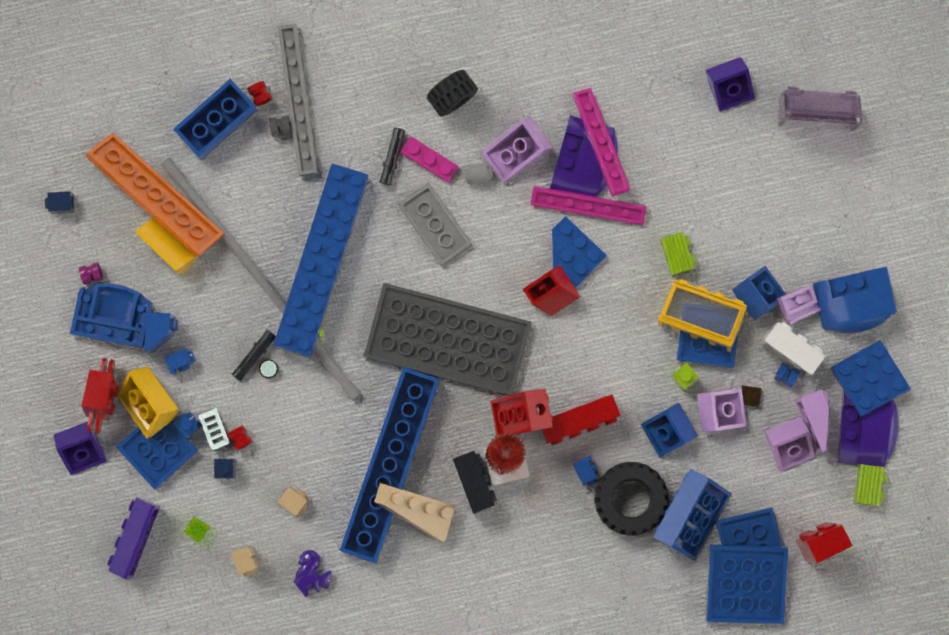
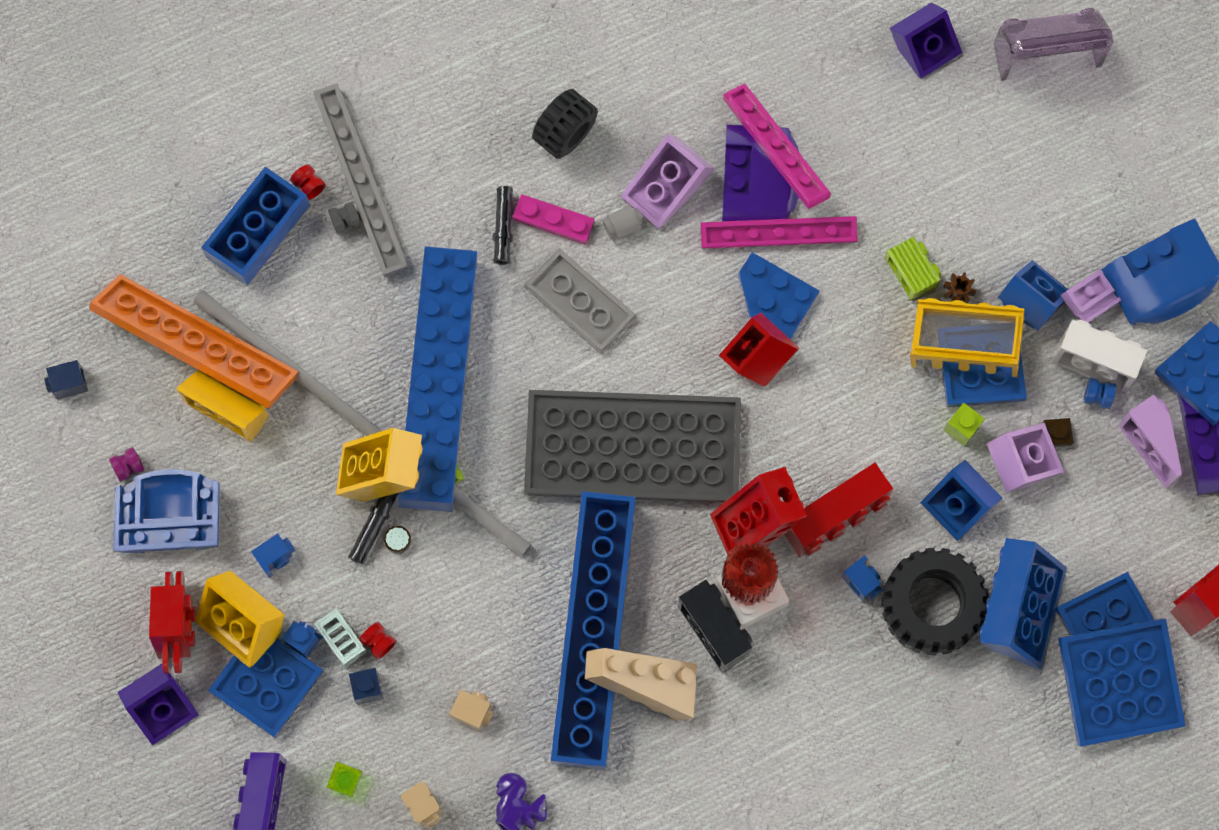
camera: 15 degrees left, 10 degrees down
(159, 330) = (236, 516): blue slope -> none
(265, 318) = (379, 465): none -> yellow brick
(704, 281) = (960, 282): none -> reddish brown gear
(790, 443) = (1129, 482): lavender slope -> none

